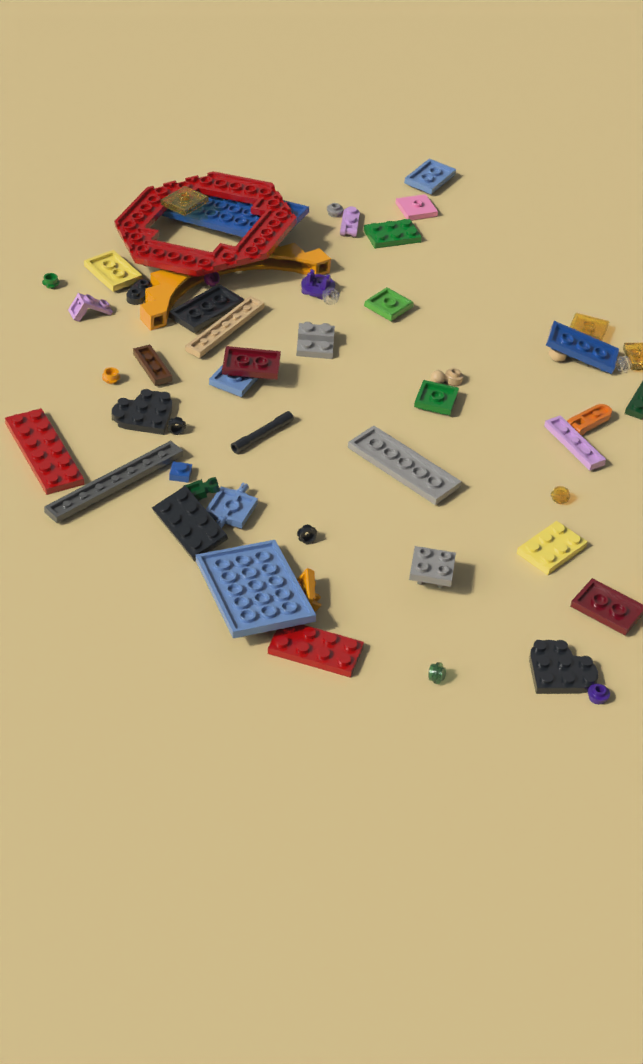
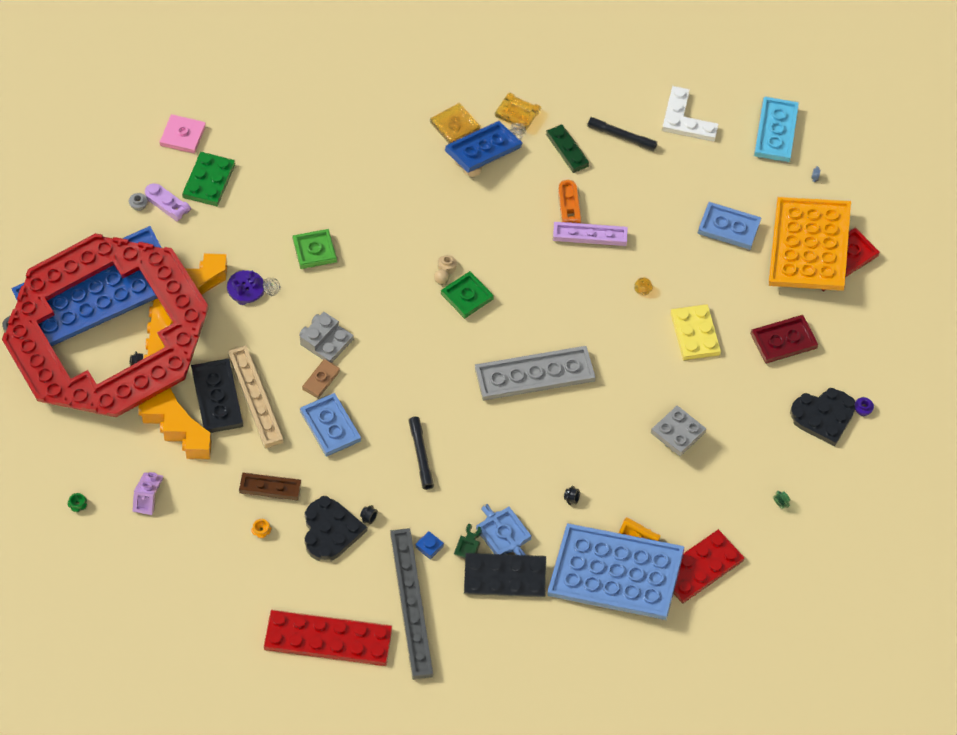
camera: 55 degrees left, 15 degrees up
(113, 270) = (101, 440): light yellow plate -> none
(136, 293) = (146, 436): black plate -> none
(184, 200) = (62, 321): clear yellow plate -> none
(251, 362) = (334, 407): dark red plate -> none
(287, 353) = (321, 378): none -> medium nougat plate
(430, 176) = (145, 92): medium blue plate -> none

